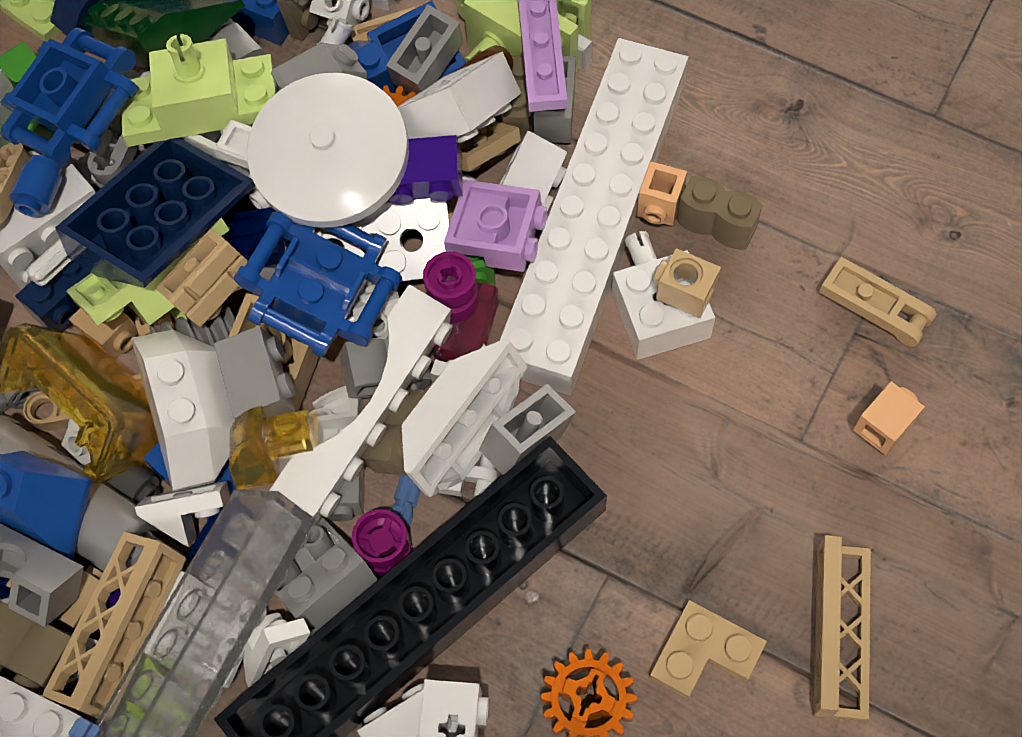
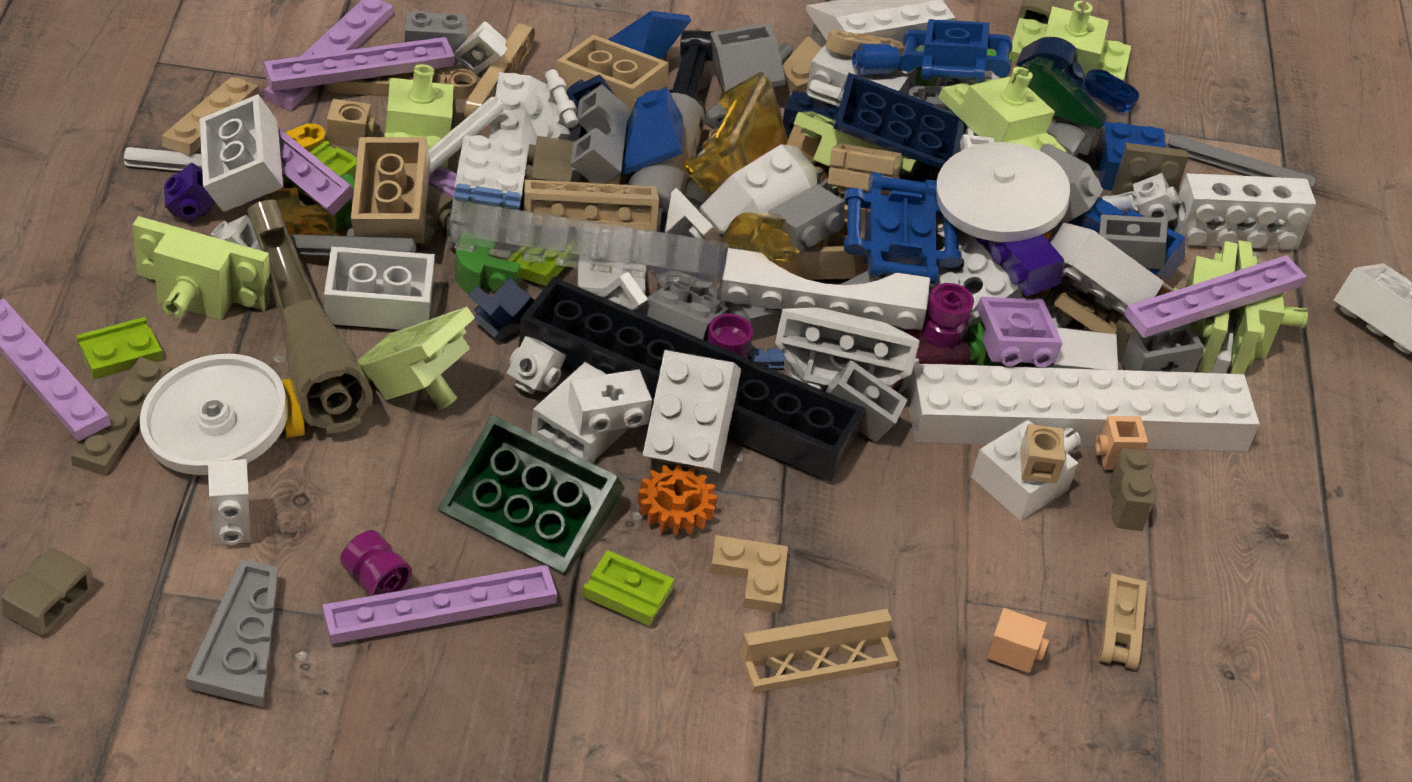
camera: 55 degrees right, 20 degrees down
(496, 637) = (692, 411): none -> white brick

